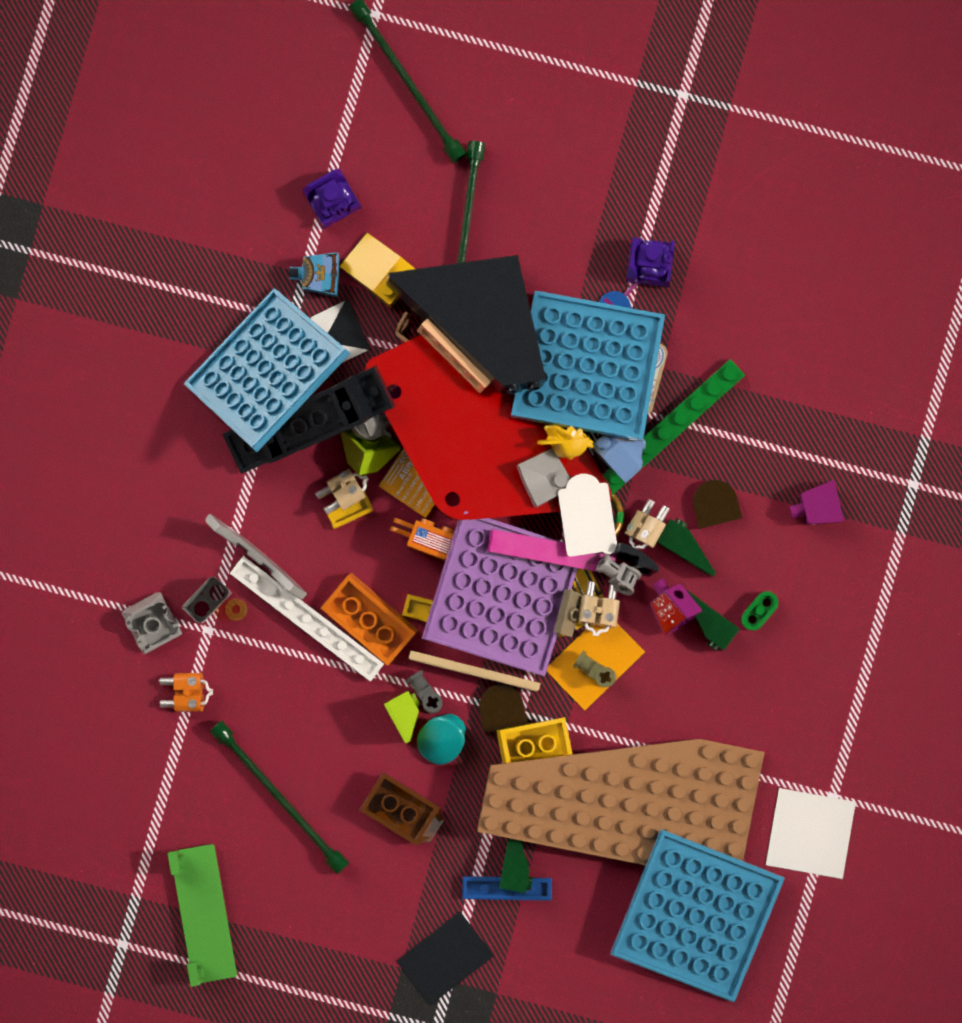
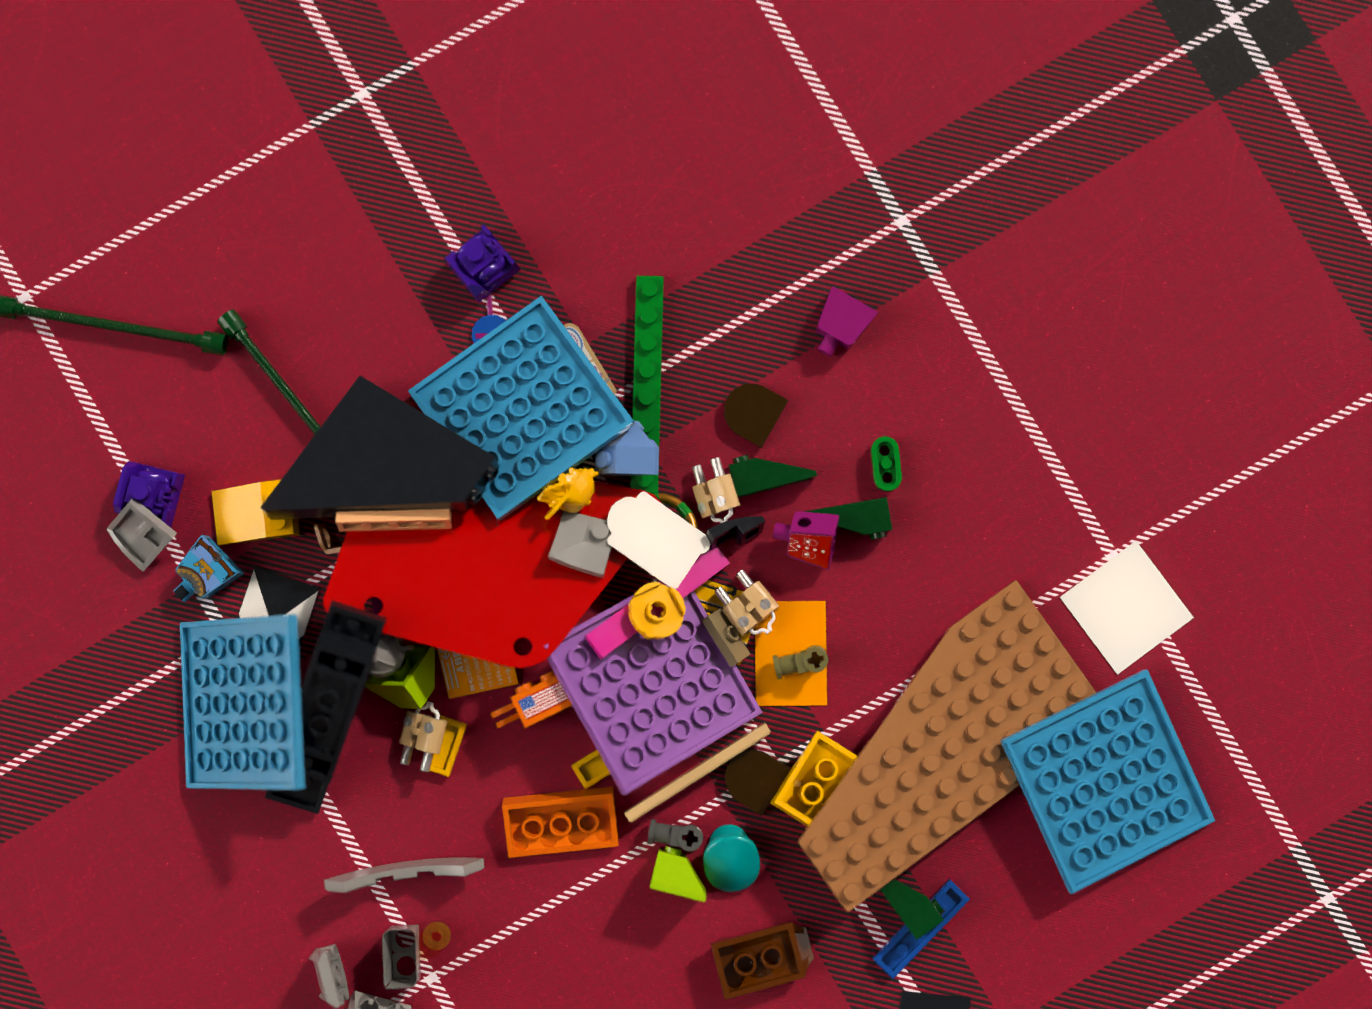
camera: 50 degrees left, 0 degrees up
(155, 568) = (330, 975): none -> light grey slope
(304, 216) = (140, 533): none -> light grey plate
(307, 618) = (506, 879): white plate -> none
(534, 562) = (662, 596): none -> yellow plate
(621, 576) = (737, 558): light grey connector -> none

